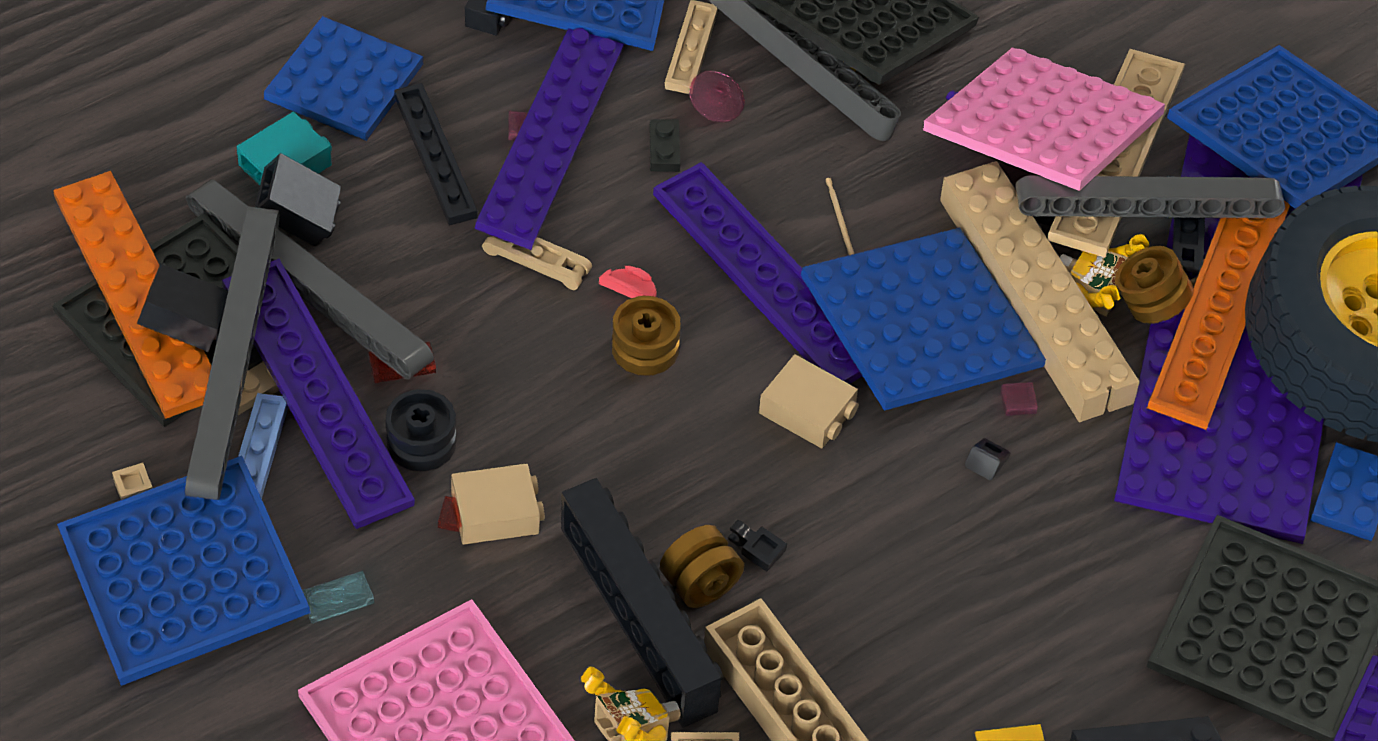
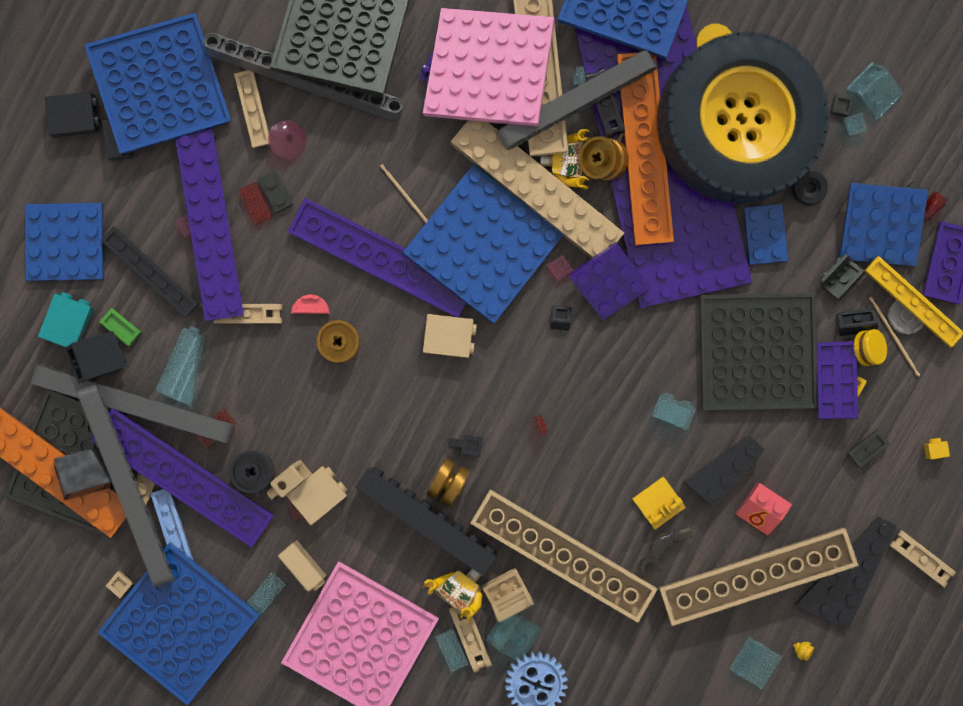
camera: 25 degrees left, 35 degrees up
(354, 199) = (120, 326): none -> bright green tile
(408, 270) = (183, 367): none -> clear light blue slope
(416, 571) = (303, 566): none -> tan brick
(463, 454) = (292, 476): none -> tan torso
(629, 145) = (255, 203): none -> clear red plate
(884, 567) = (541, 424): none -> clear red tile
(1086, 431) = (609, 281): none -> dark purple plate
(1099, 642) = (673, 411): none -> clear light blue brick

